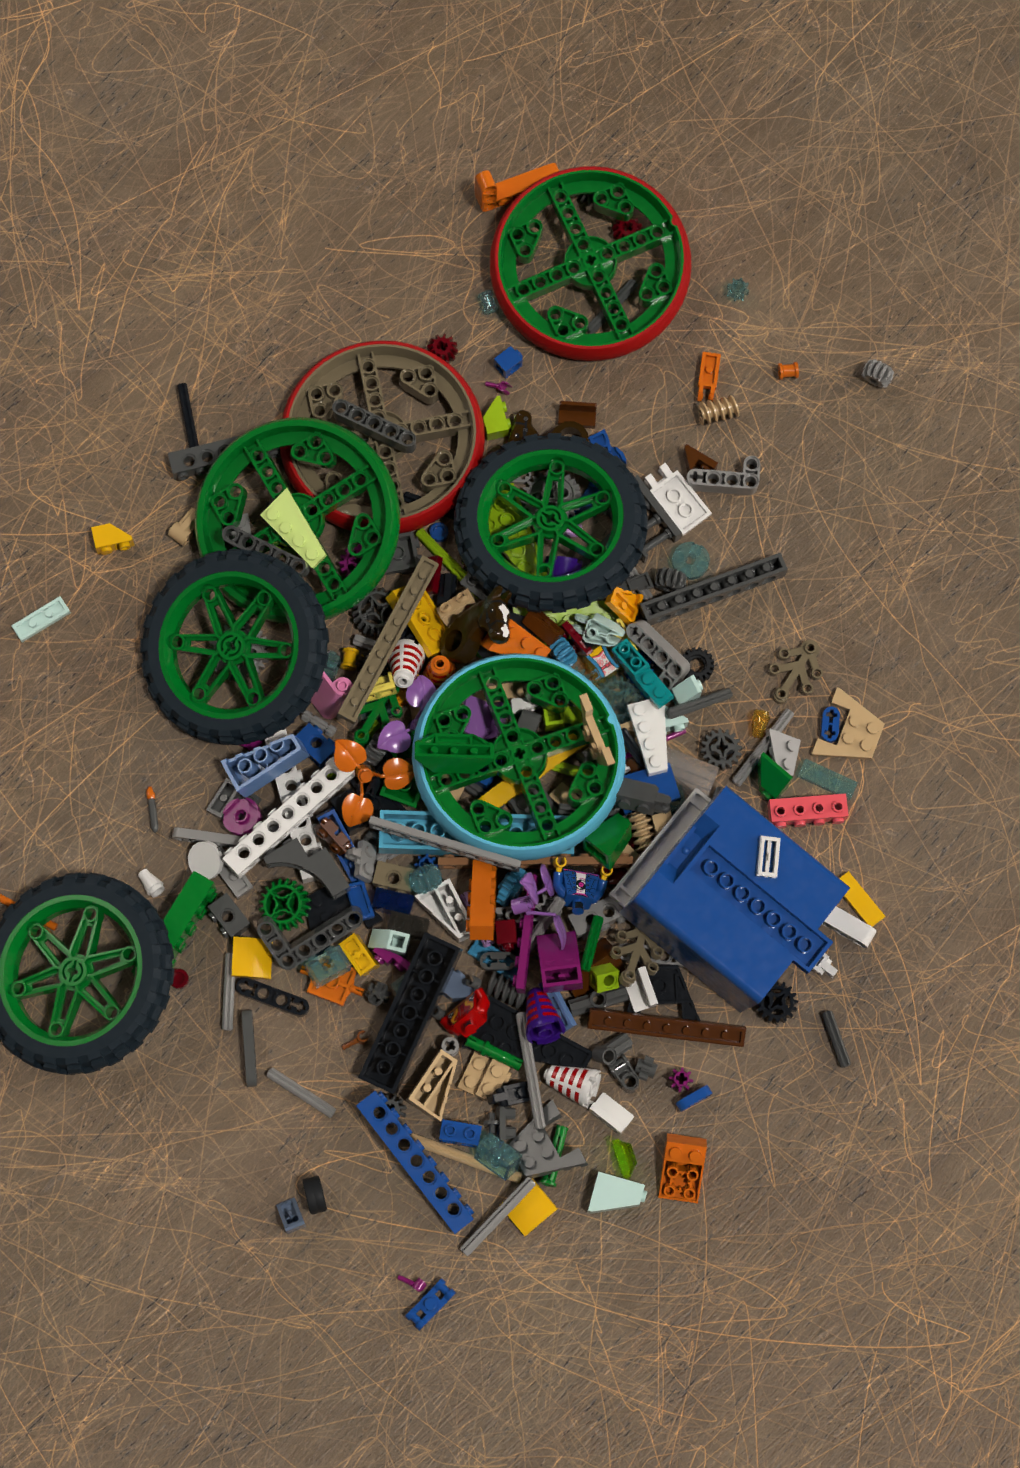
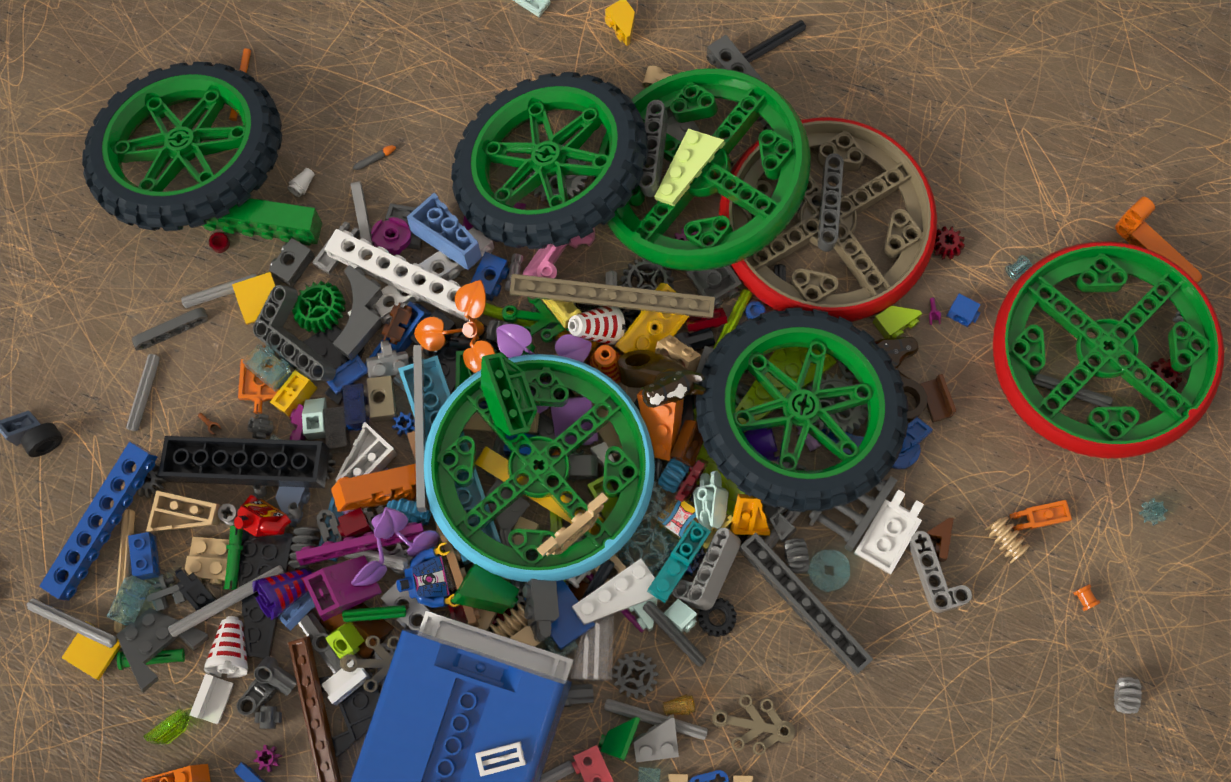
camera: 75 degrees right, 0 degrees up
(205, 859) = (337, 218): white tile -> none
(274, 993) = (224, 332): black beam -> none
(332, 665) = (574, 258): clear light blue brick -> none
(349, 659) = (589, 275): yellow bush -> none
(425, 879) = (383, 425): clear light blue gear -> none
(615, 1194) = (126, 731): light aqua slope -> none

